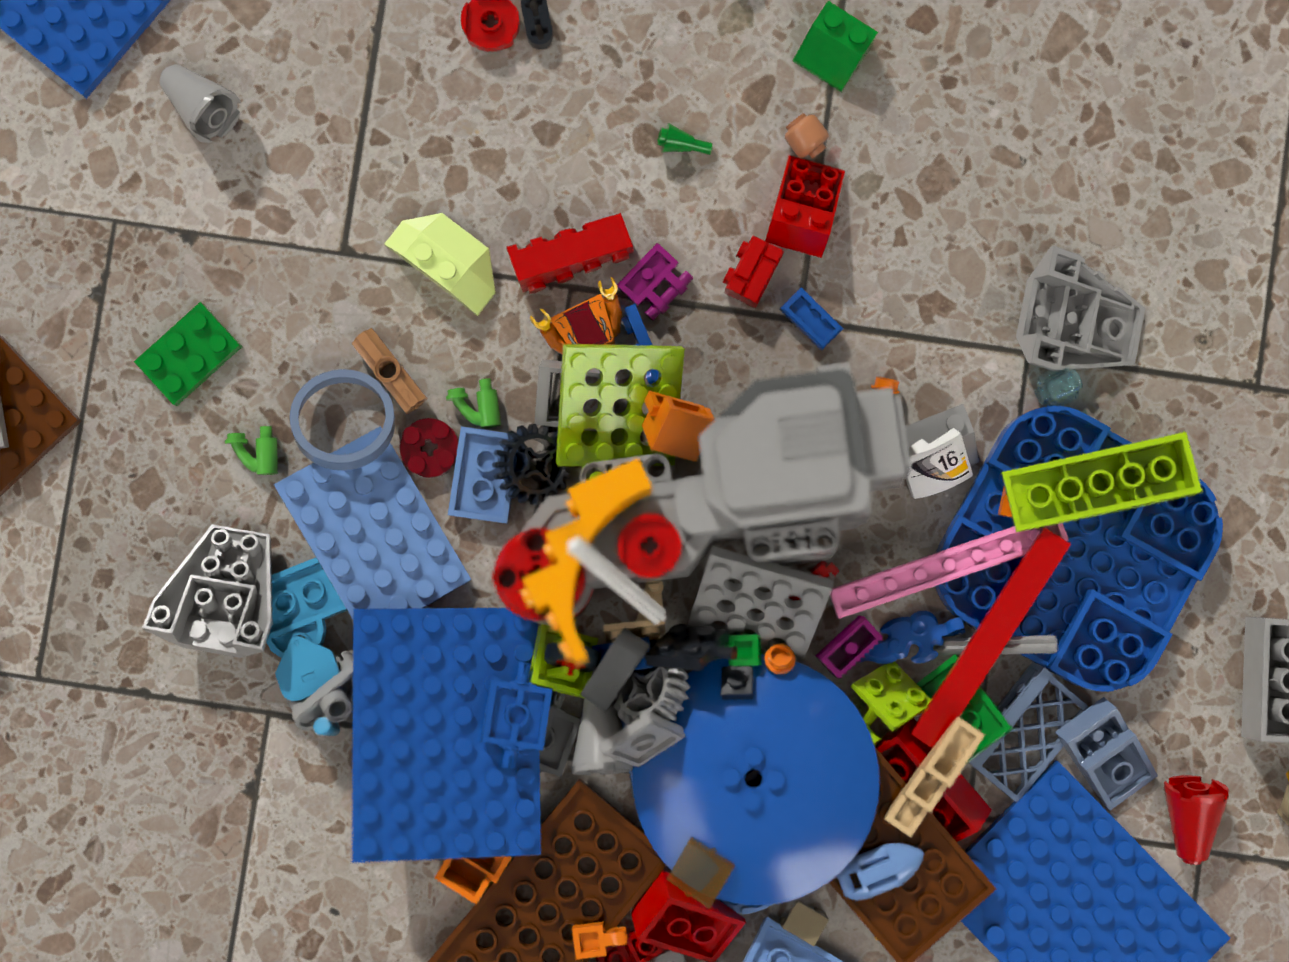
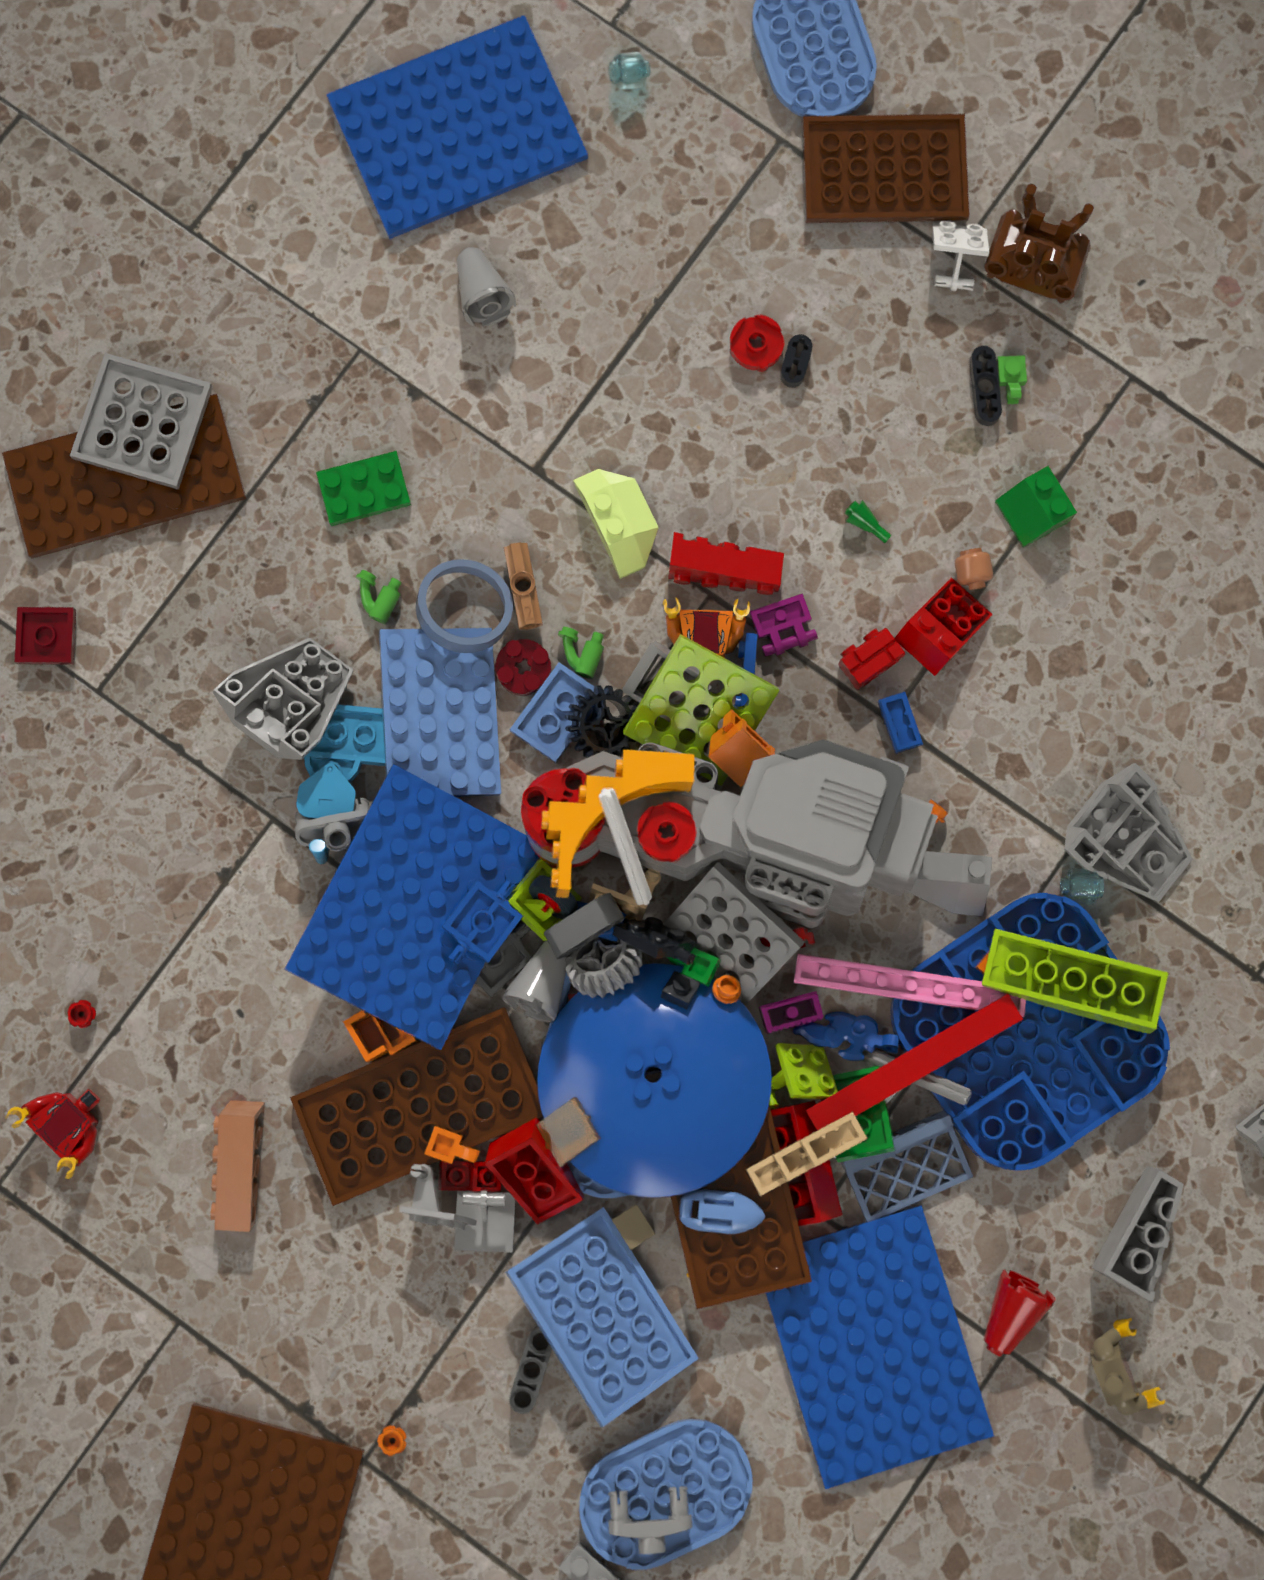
camera: 25 degrees right, 5 degrees down
(642, 740) = (576, 994): light grey plate -> none
(937, 465) = (943, 897): white slope -> none
(1107, 753) = (967, 1220): sand blue slope -> none

